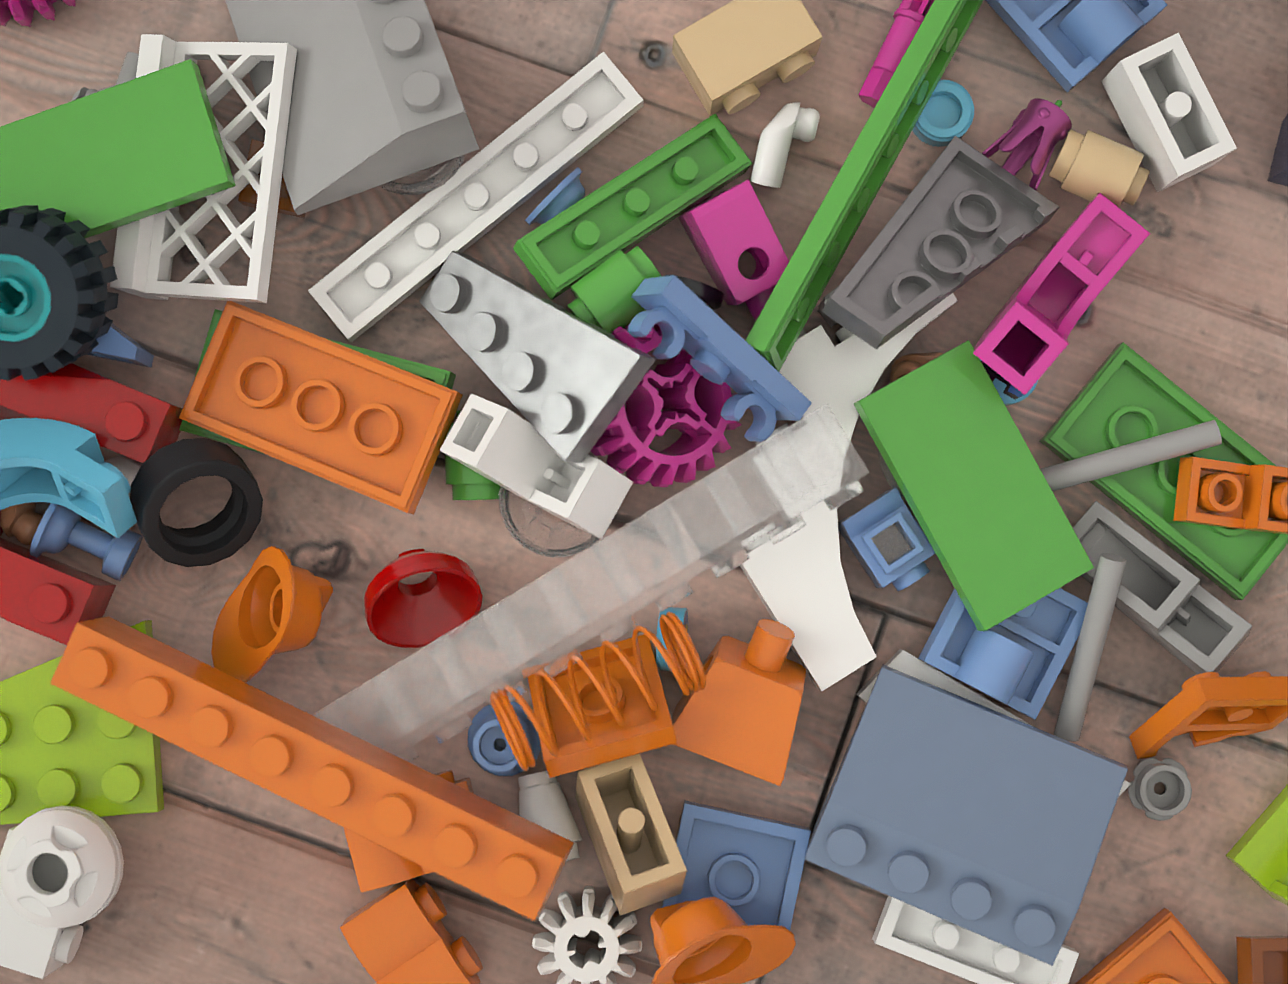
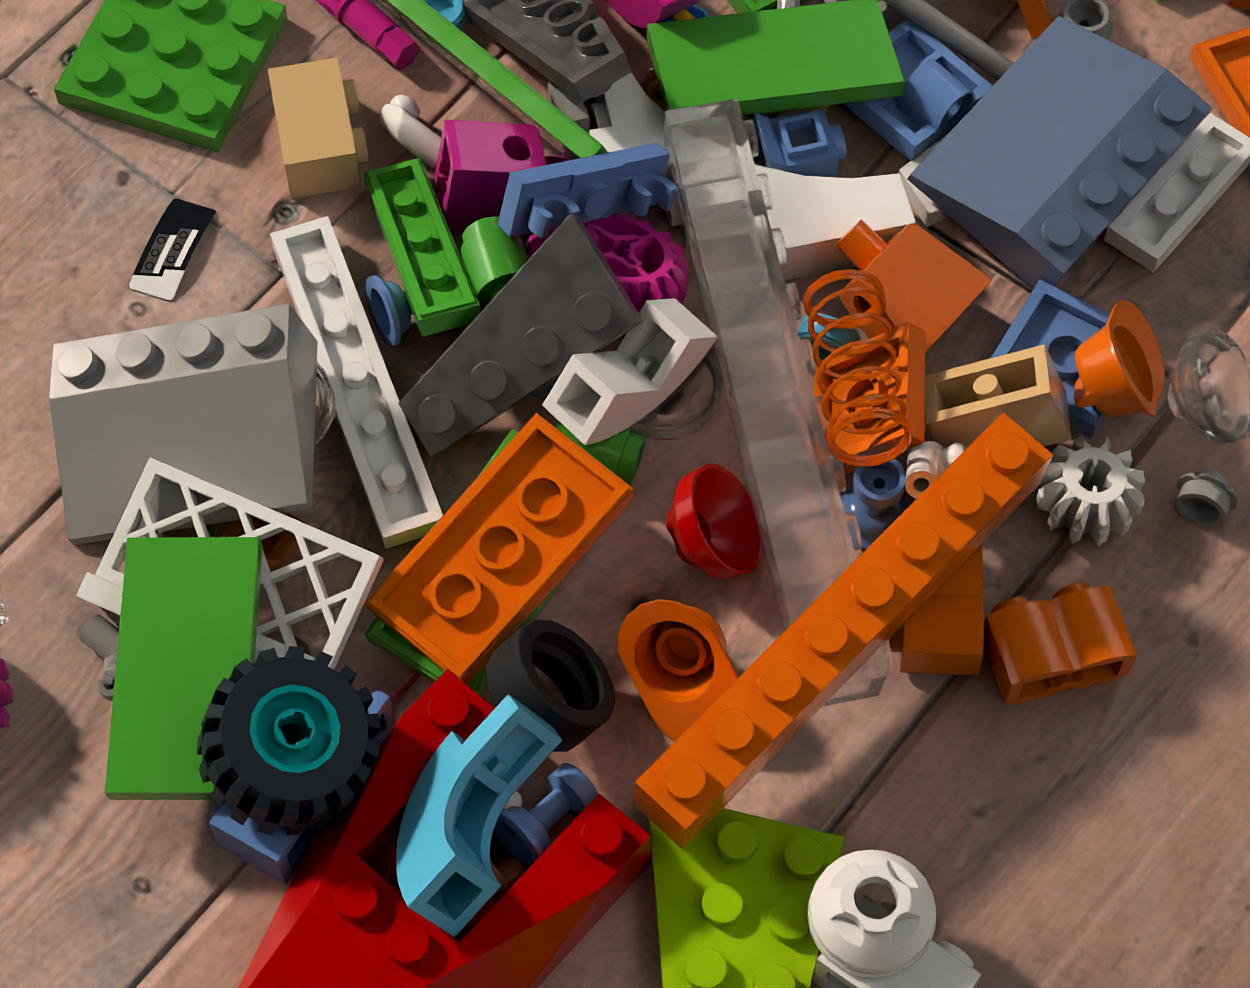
camera: 70 degrees left, 25 degrees down
(537, 789) = (927, 463): none -> arm

